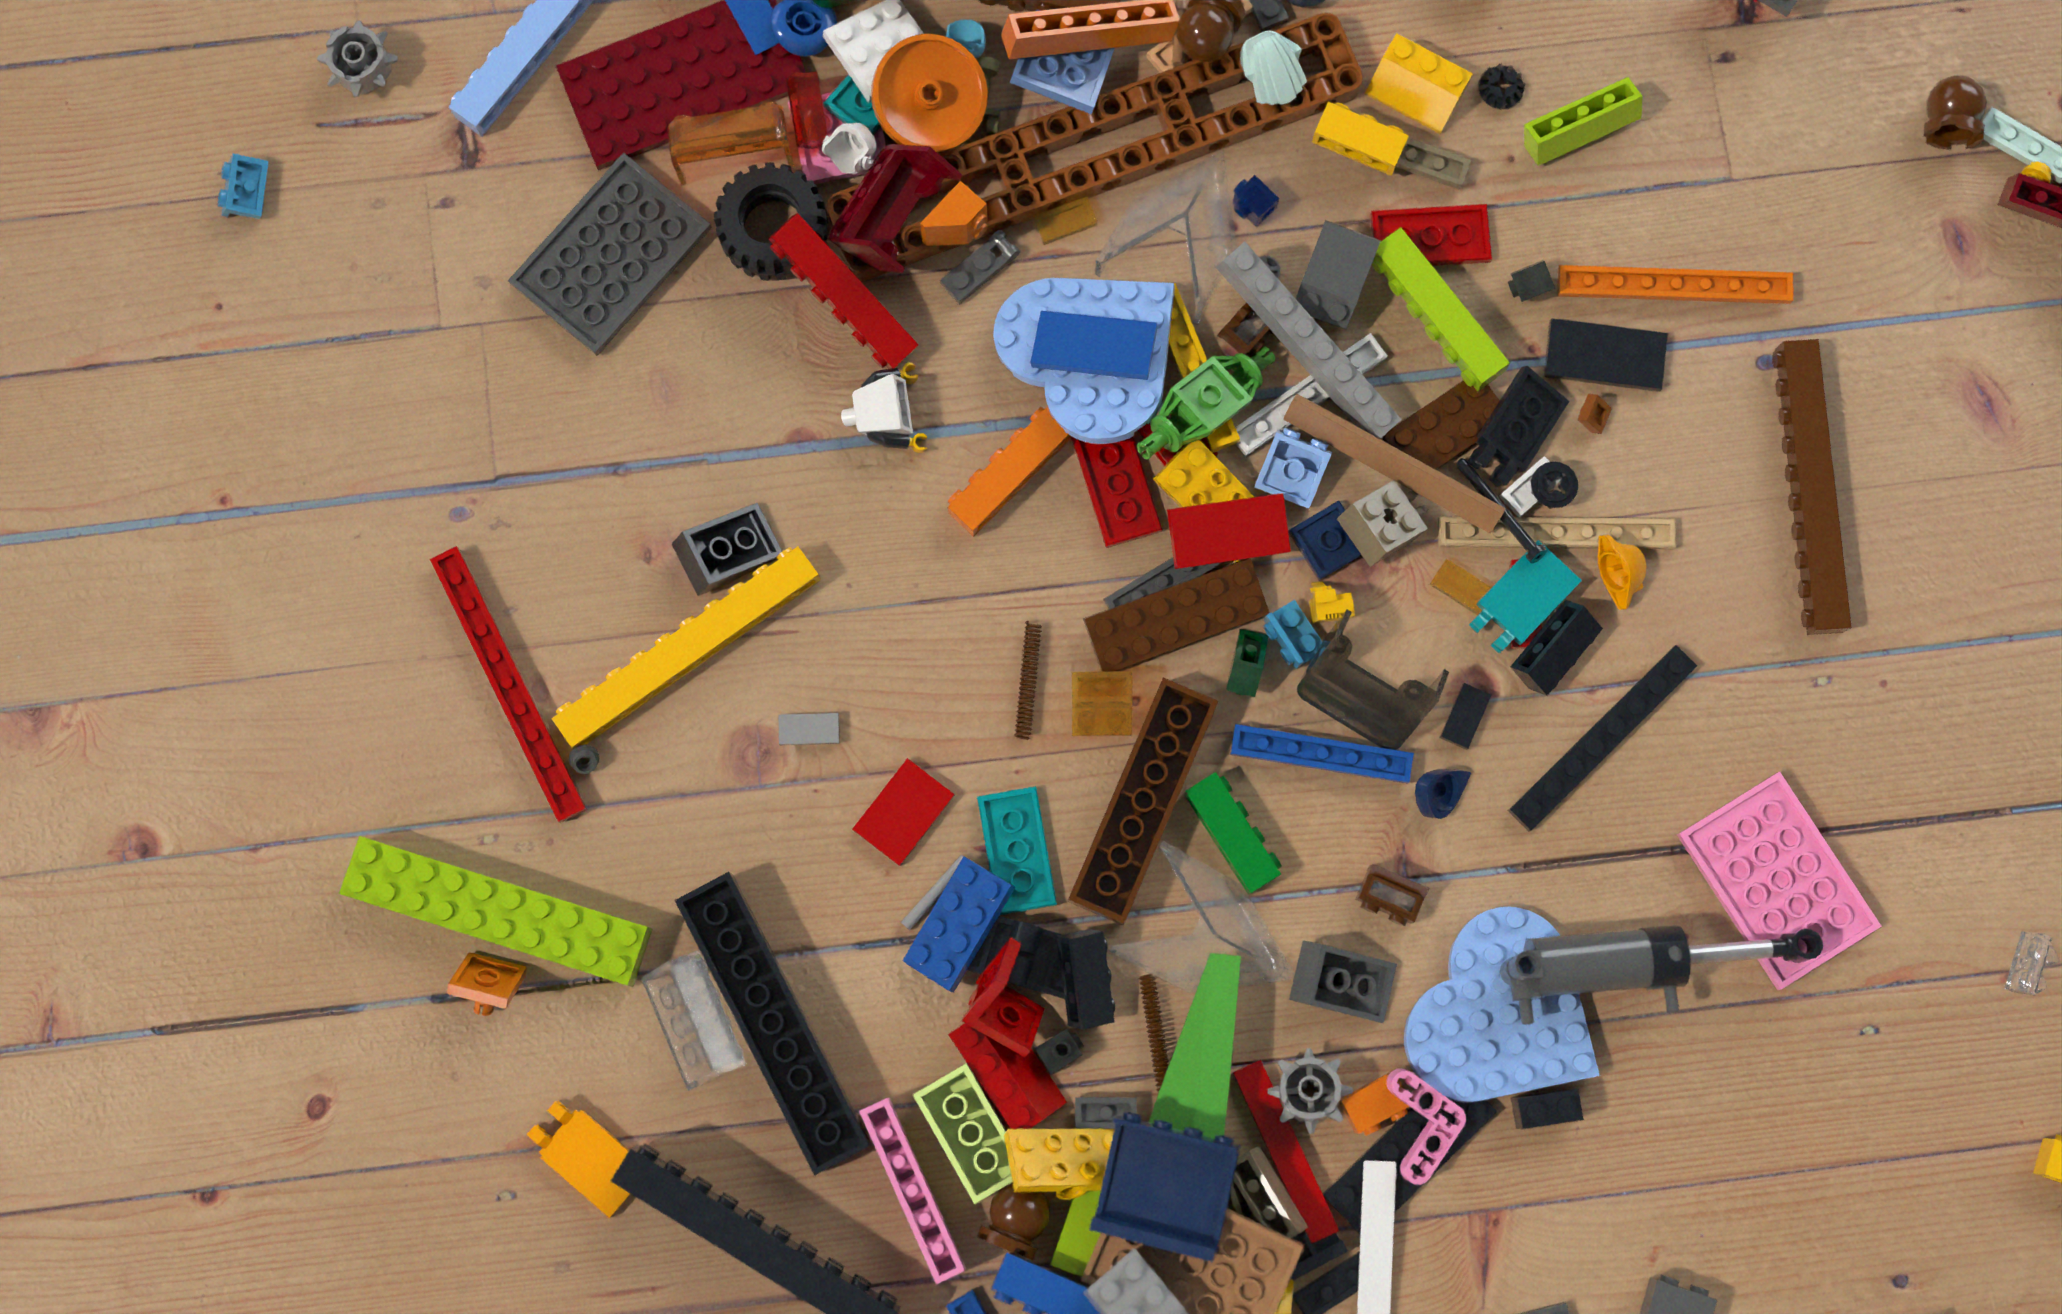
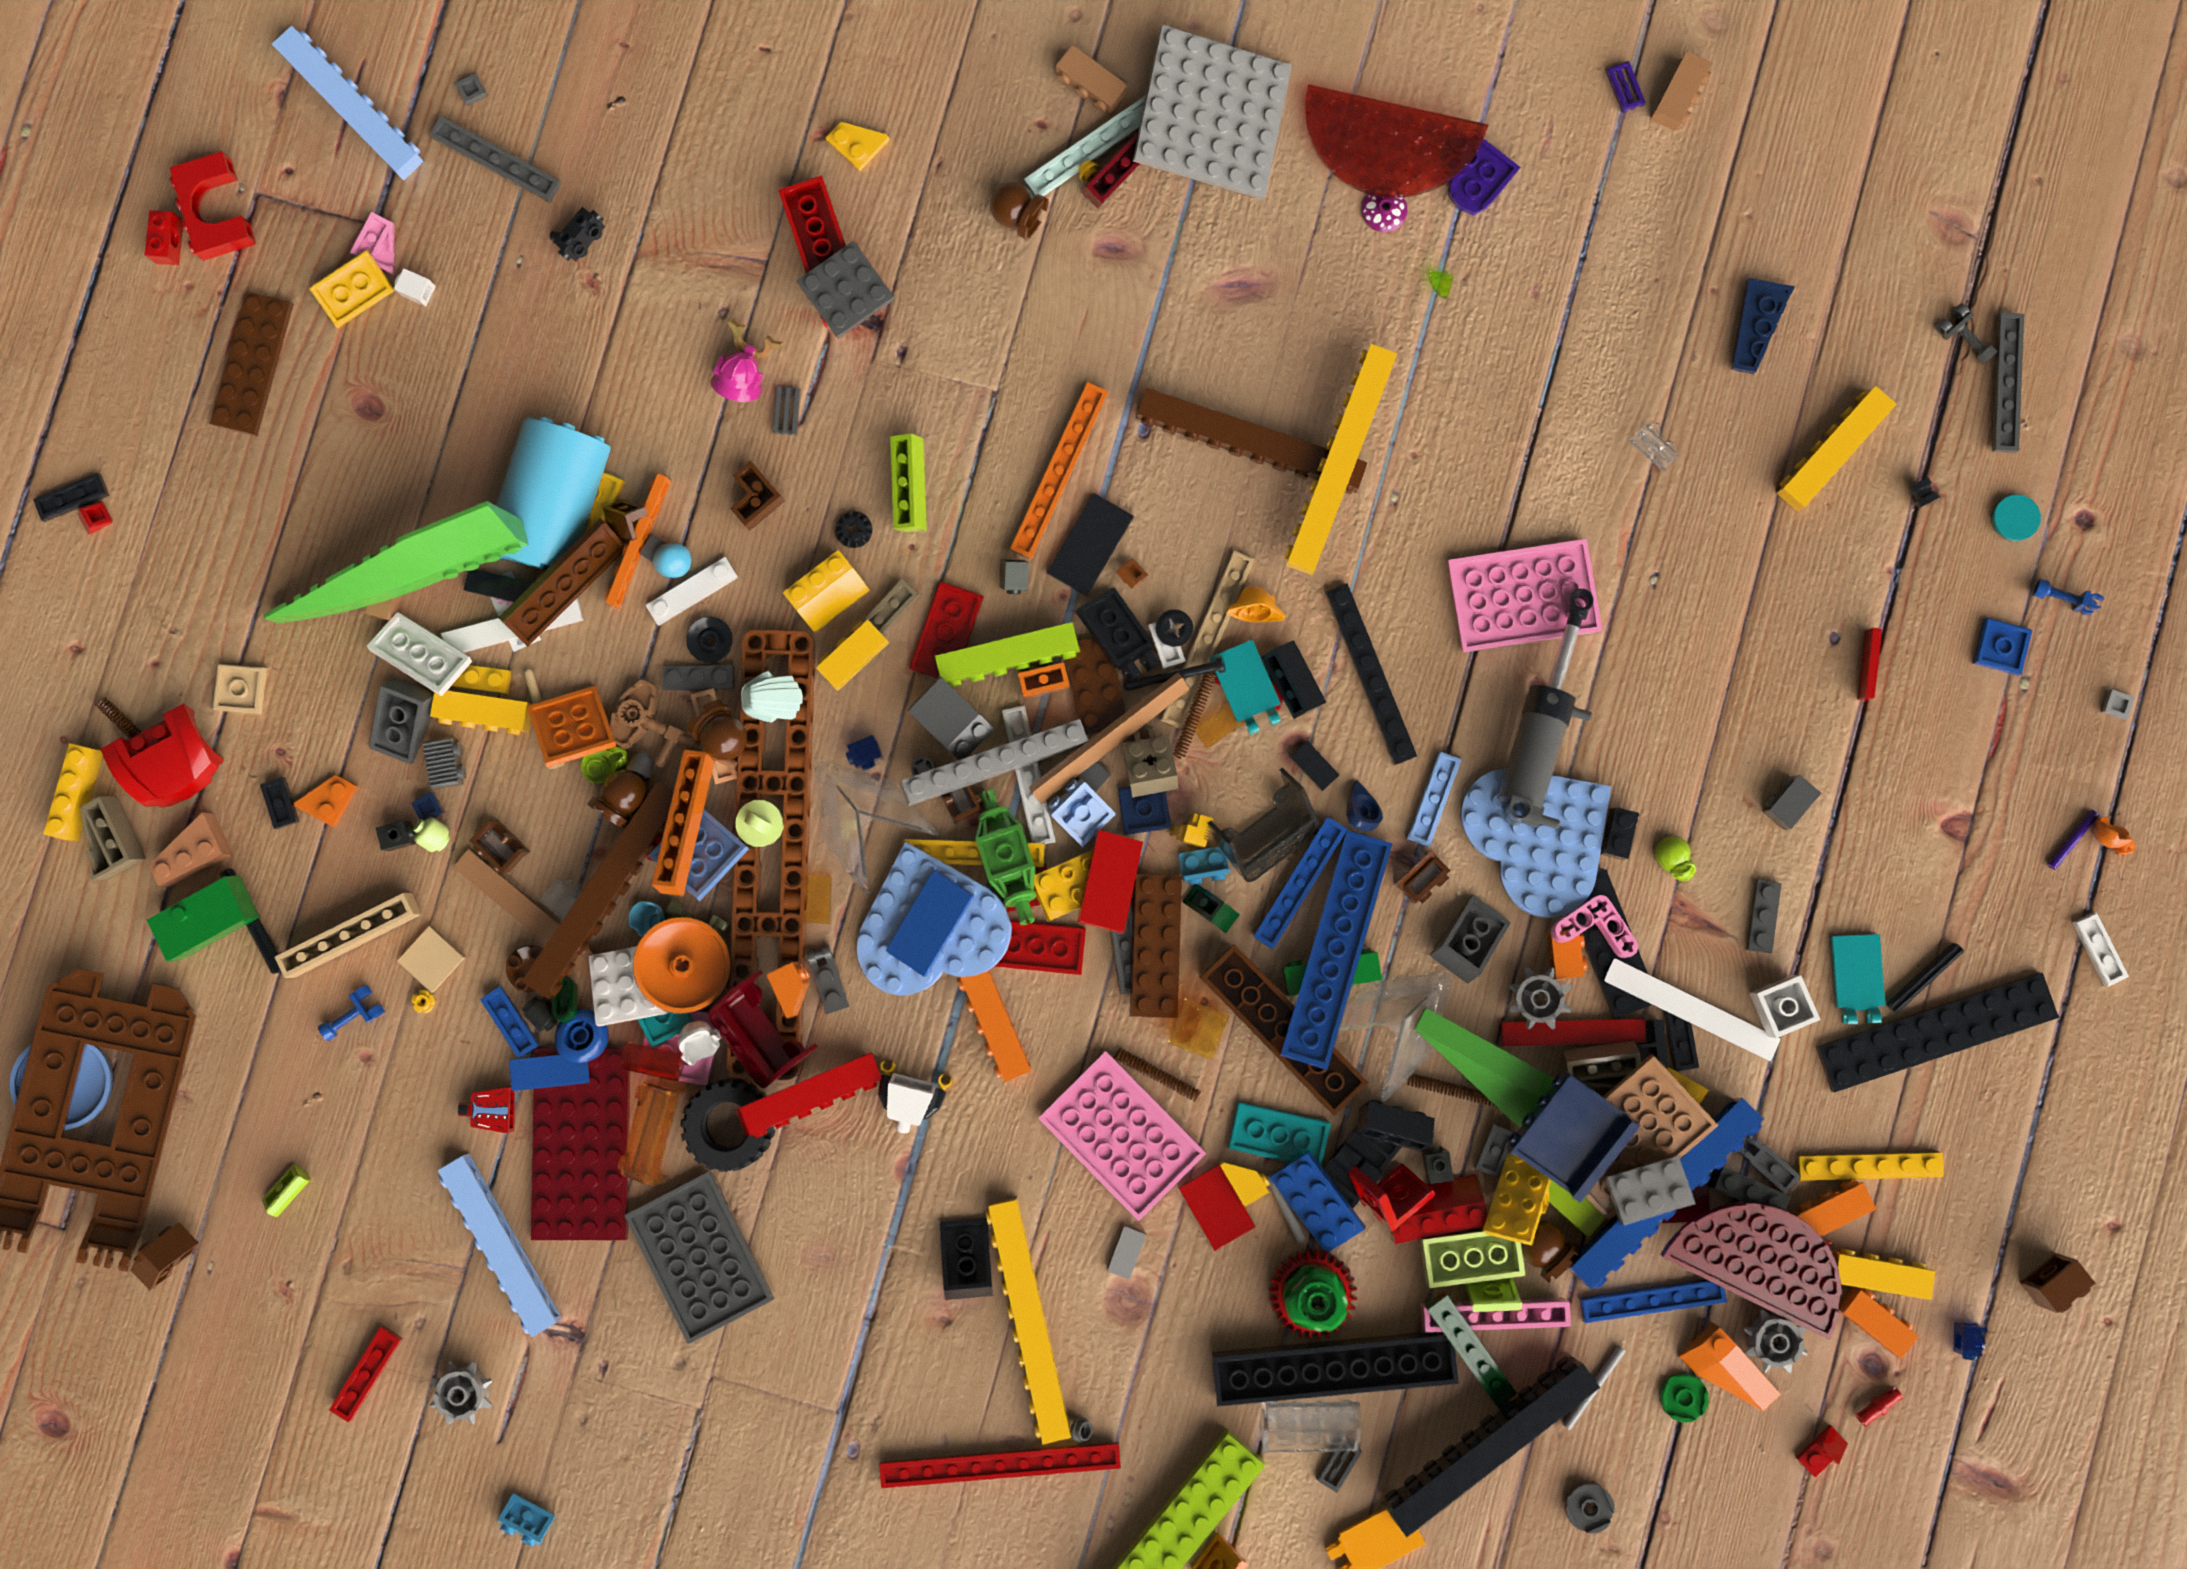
camera: 60 degrees left, 5 degrees up
(635, 1073) = (1327, 1482): none -> dark grey tile
(842, 980) = (1313, 1293): none -> green piece
(860, 1172) = (1470, 1349): none -> plate
(936, 1176) = (1494, 1295): none -> lime tile
(941, 668) = (1122, 1135): none -> bright pink plate
(946, 831) = (1245, 1181): none -> yellow slope
(1124, 114) = (759, 823): none -> yellowish green tile
(1263, 823) = (1336, 950): none -> blue plate
(1341, 468) = (1094, 776): none -> dark grey tile
(1426, 363) = (1044, 680): none -> orange brick
(1463, 546) = (1193, 710): none -> reddish brown piece
(1489, 872) = (1434, 799): none -> light blue tile
(1548, 1190) = (1674, 857): none -> lime hair
(1841, 592) = (1341, 459): none -> yellow brick

